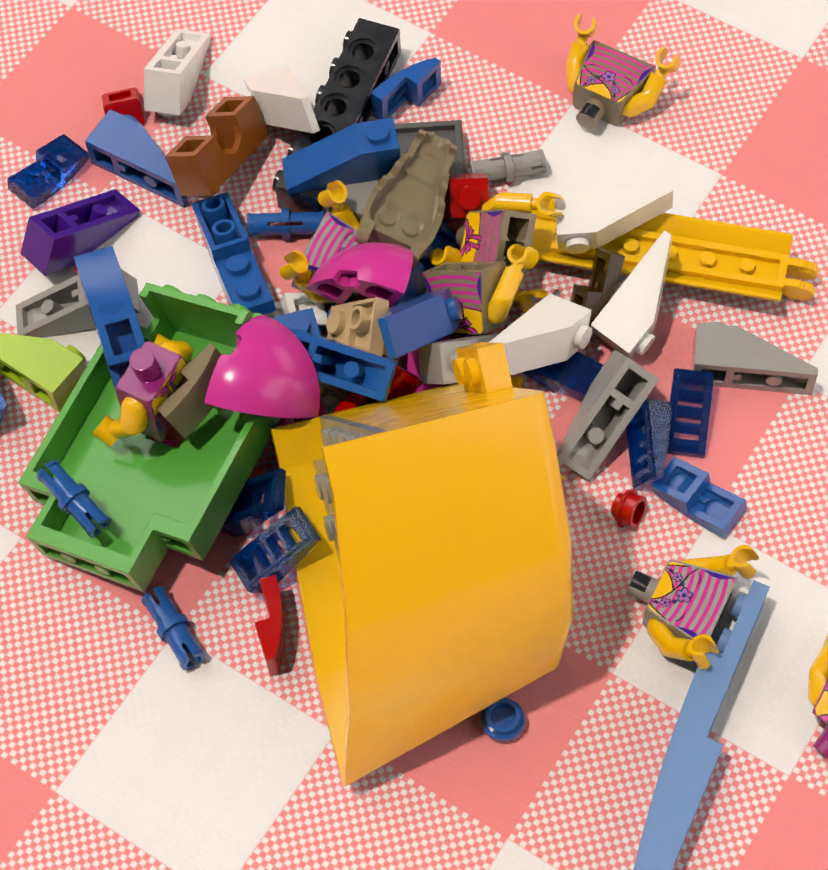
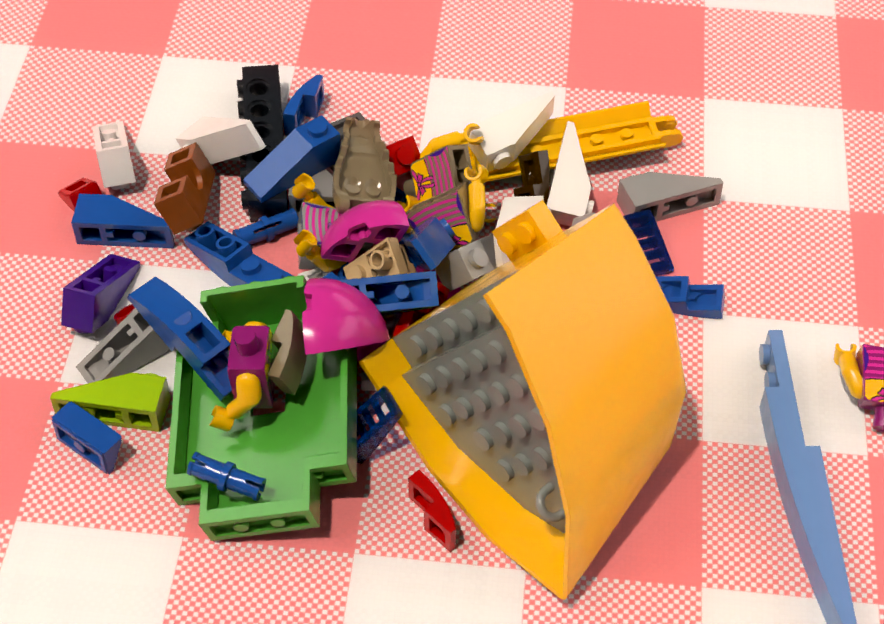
camera: 30 degrees left, 10 degrees down
(53, 169) = (47, 260): clear blue slope -> none
(173, 628) = (354, 547): blue pin -> none
(252, 561) = (396, 448): clear blue slope -> none
(503, 720) = (648, 504): blue plate -> none
(510, 166) = (417, 128): light grey pin -> none
(610, 82) = (454, 52): torso -> none
(690, 602) = (732, 366): torso -> none

